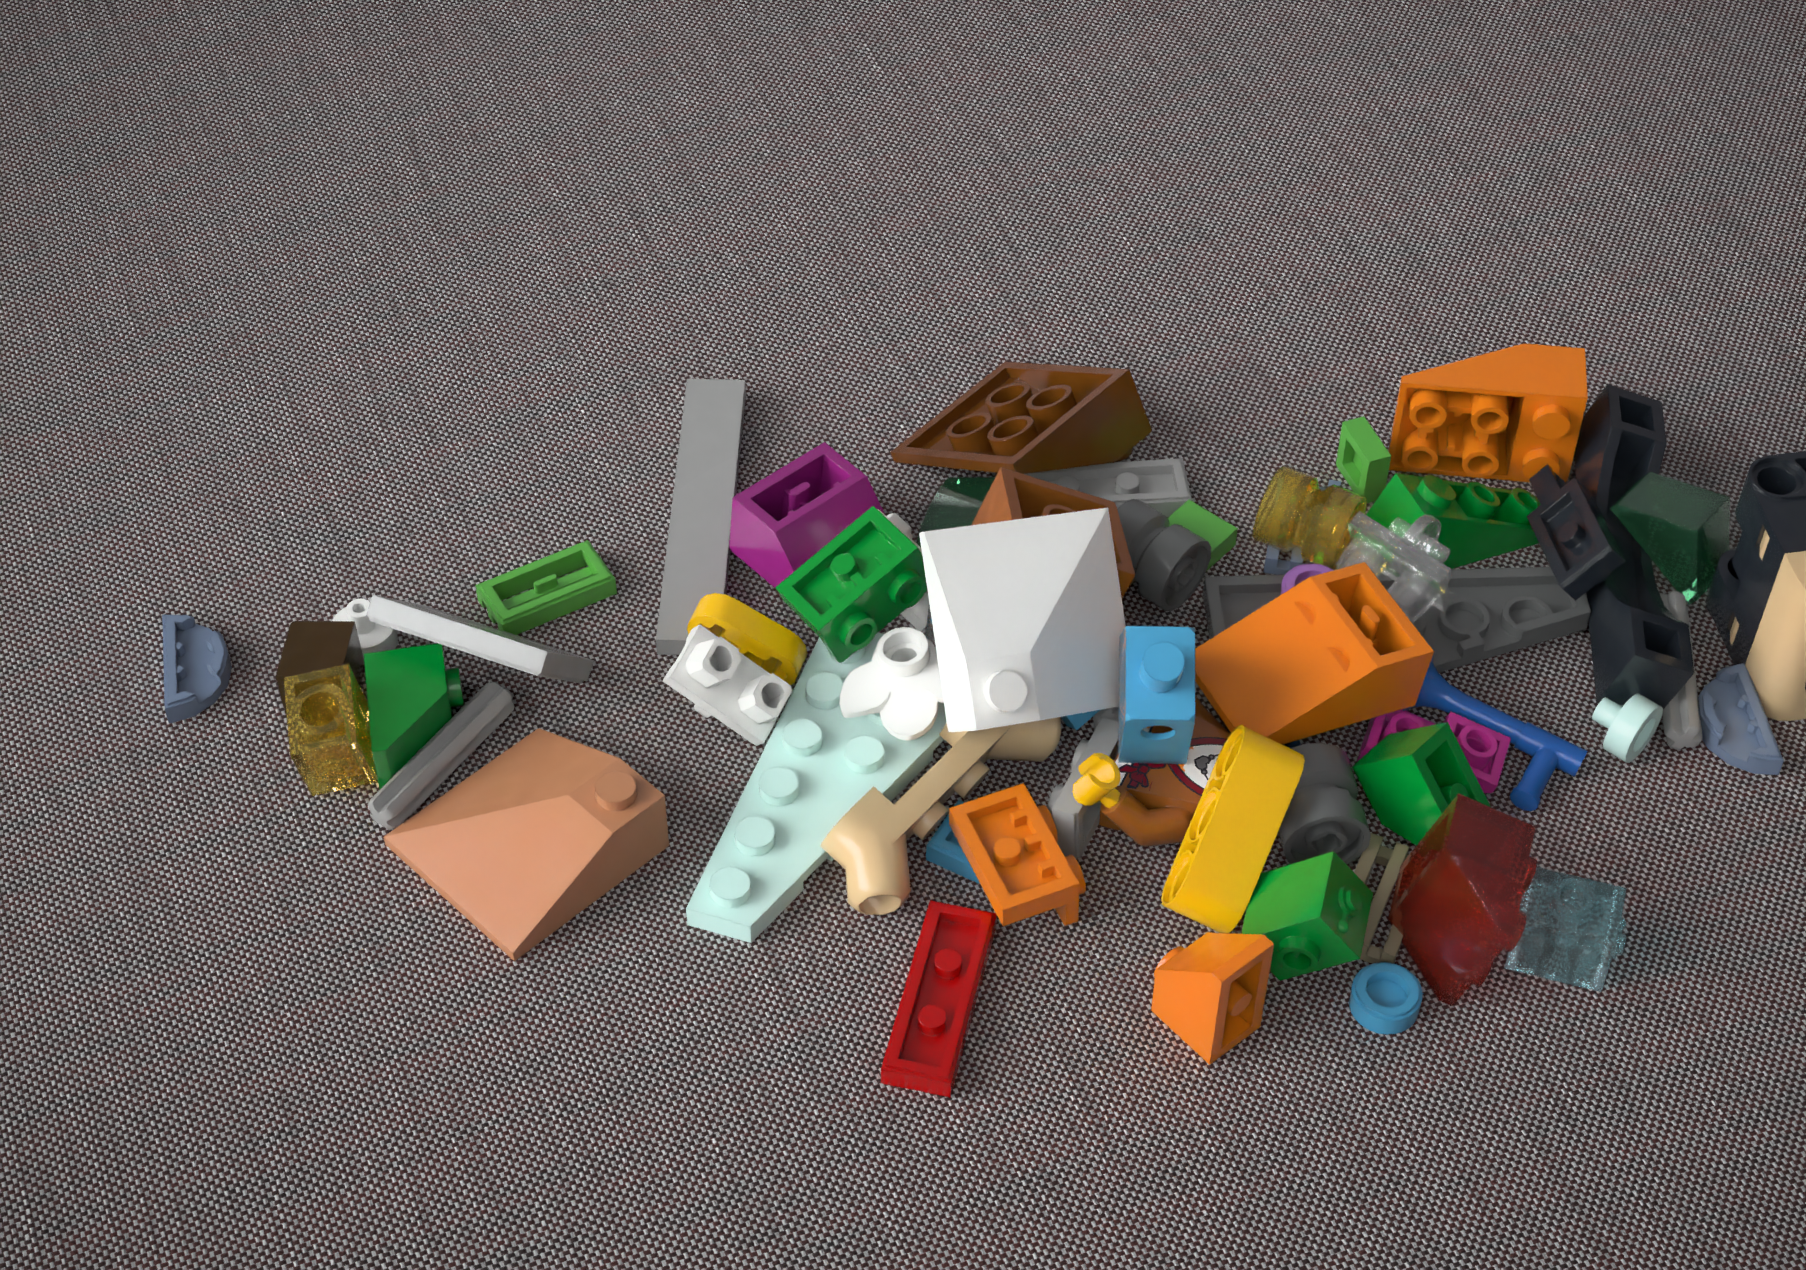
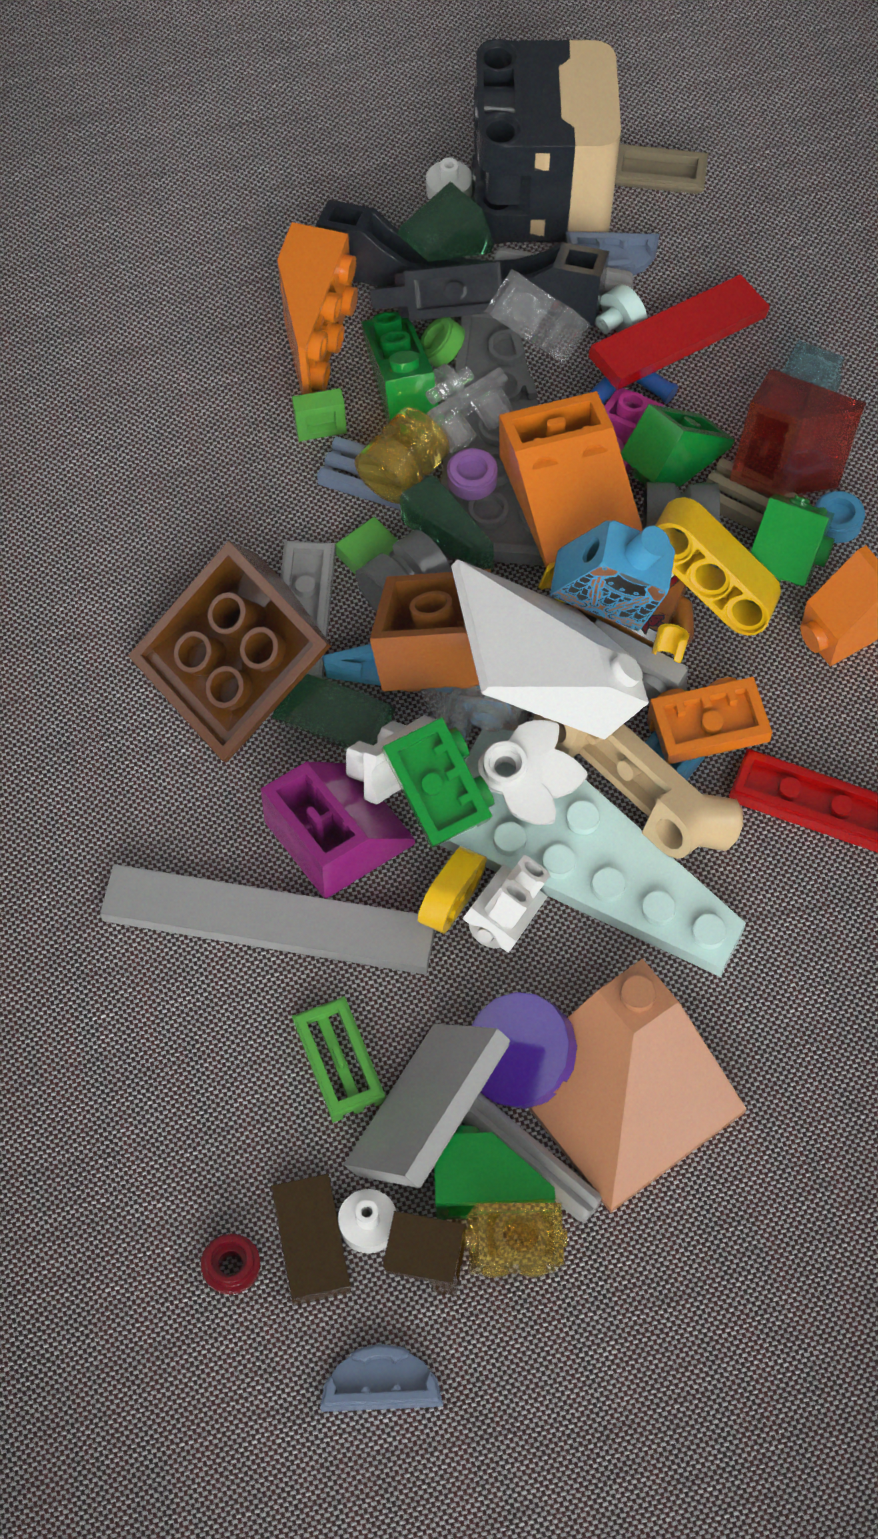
camera: 80 degrees left, 15 degrees up
(313, 529) = (222, 1248): none -> dark red plate
(328, 588) = (311, 1239): none -> dark brown tile
(556, 721) = (539, 1049): none -> dark purple tile
(1222, 567) = (437, 514): none -> clear green slope
(1512, 555) = (442, 340): none -> bright green tile
(1565, 633) = (537, 317): none -> clear slope
(1620, 789) = (678, 331): none -> red tile

